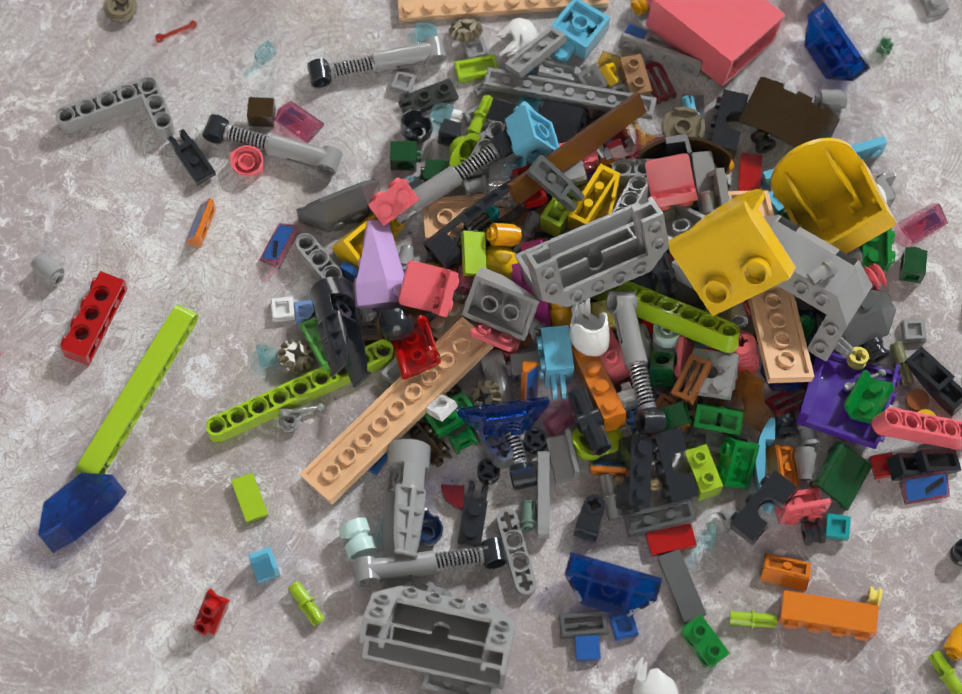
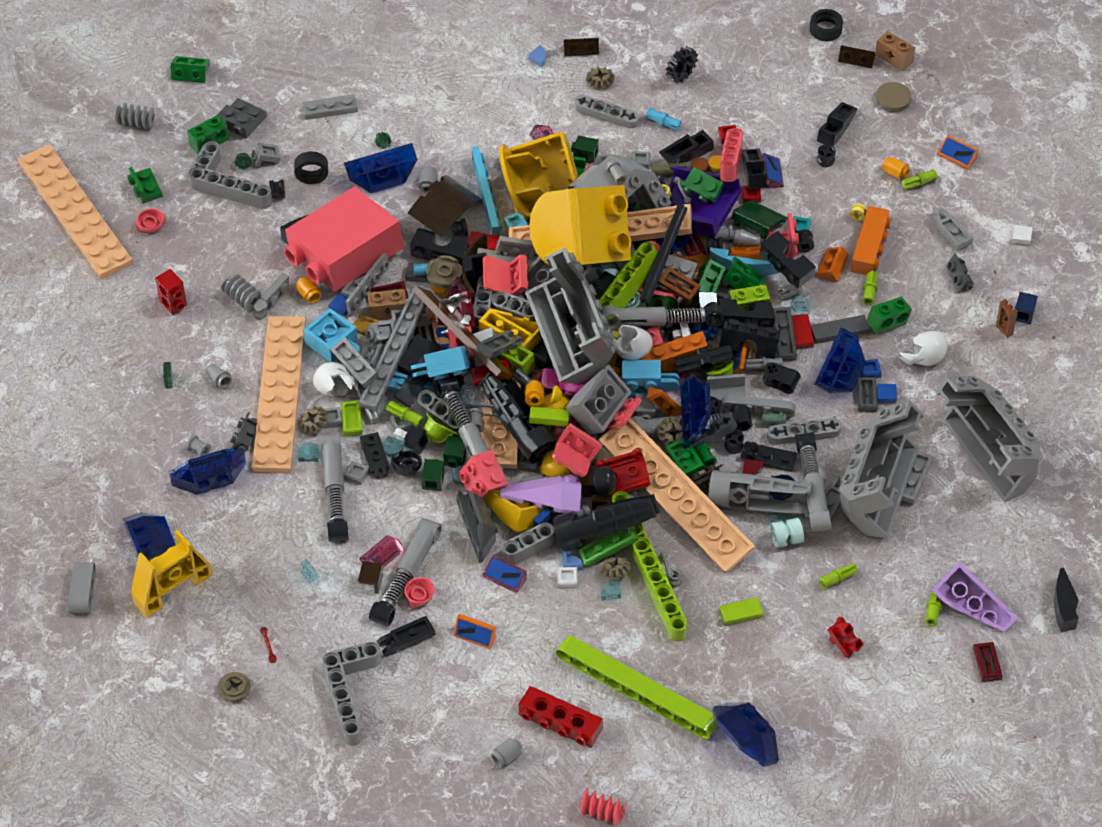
camera: 80 degrees left, 15 degrees down
(264, 565) = (803, 600): medium azure panel -> none
(441, 407) = (682, 457): white tile -> none
(608, 72) = (382, 317): yellow tile -> none
(708, 202) = (531, 257): light grey pin -> none
(729, 352) = (663, 254): none -> black axle

